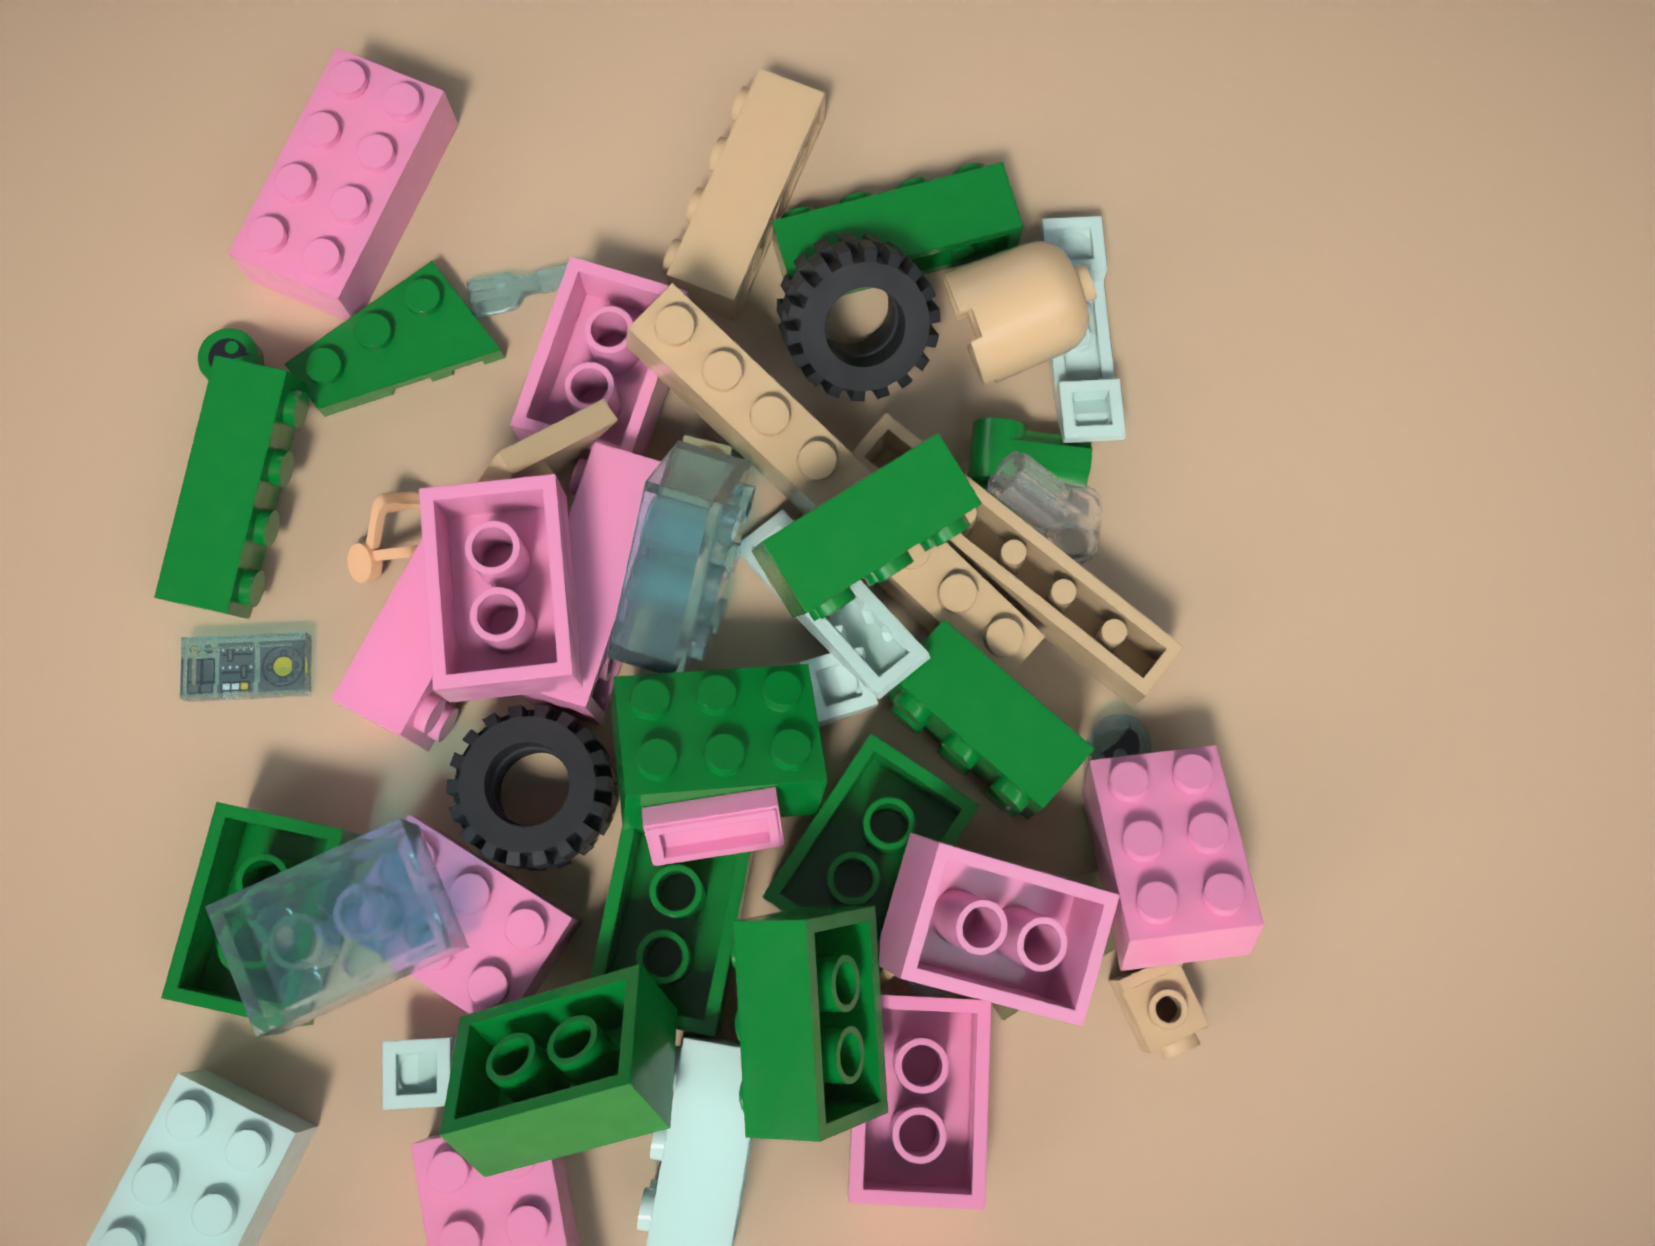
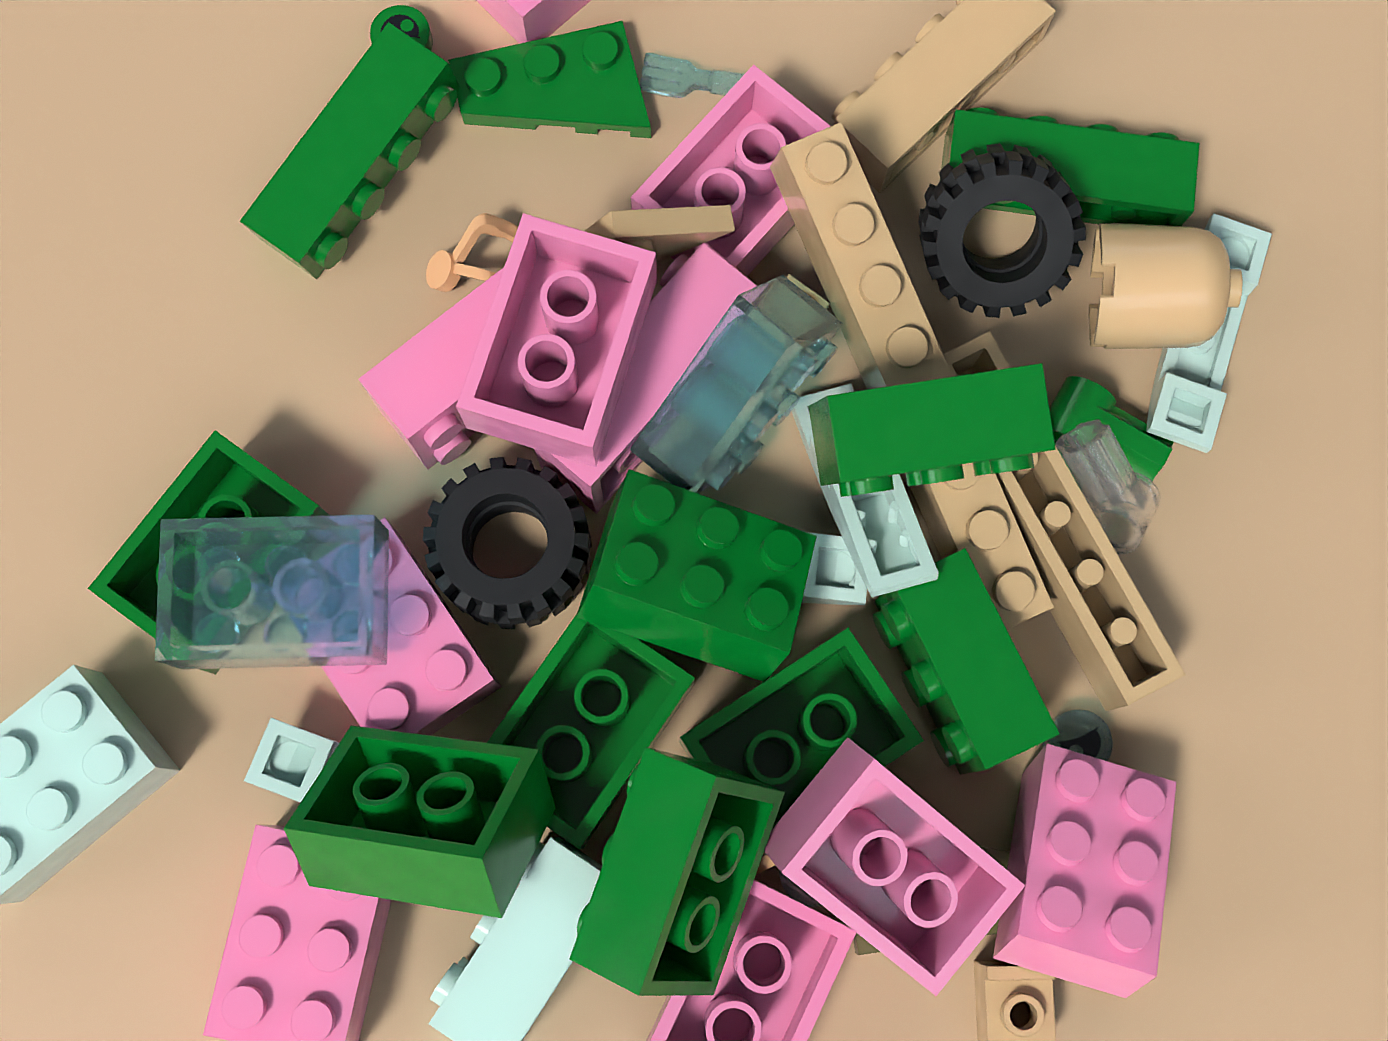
camera: 20 degrees right, 0 degrees up
(245, 666) = (295, 321): clear light blue tile -> none
(713, 826) = (662, 650): bright pink tile -> none

